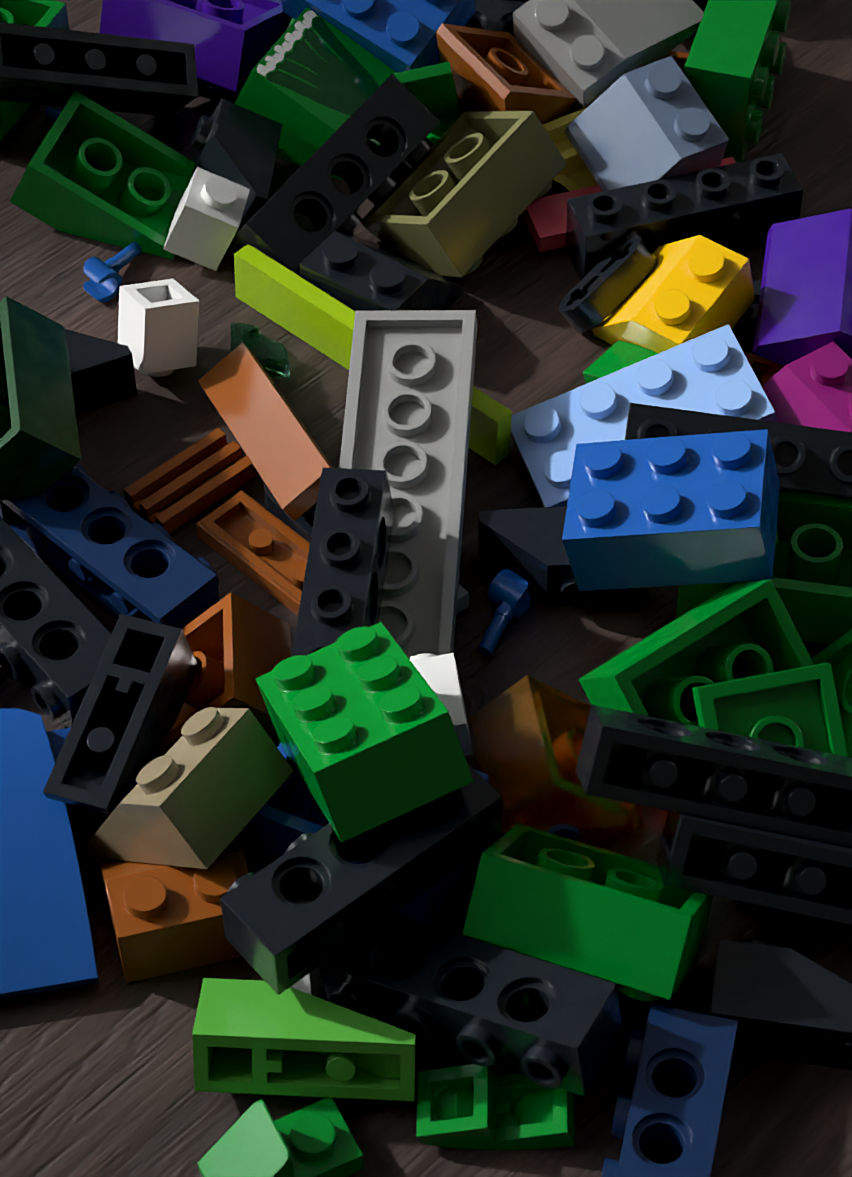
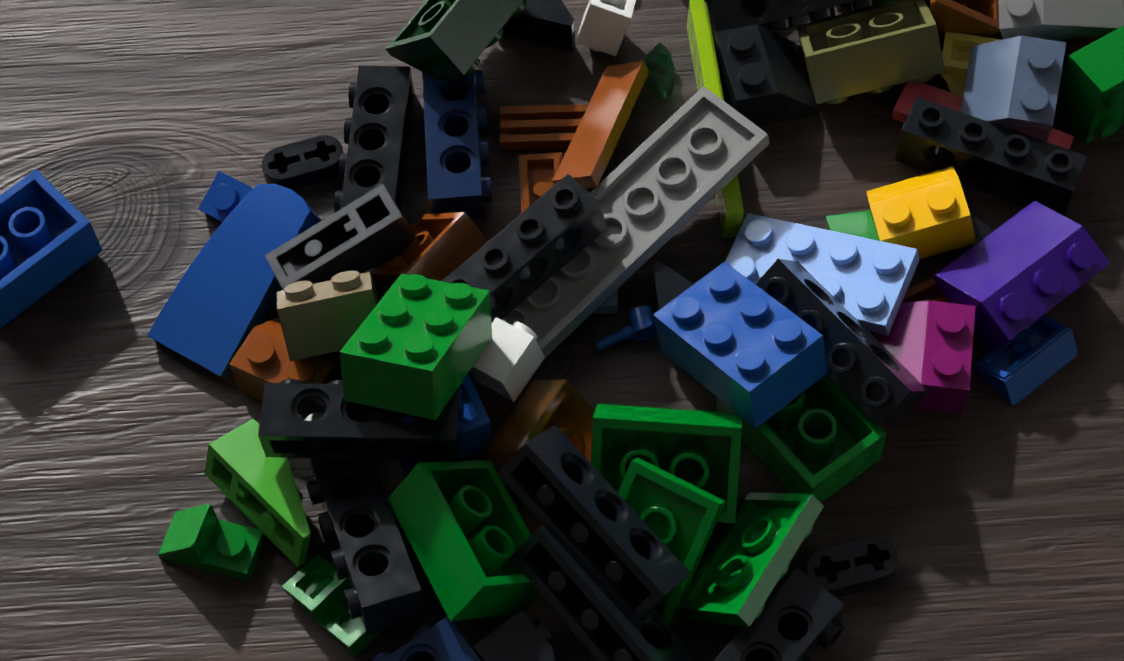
camera: 45 degrees right, 10 degrees up
(608, 284) = (895, 169): beam -> none

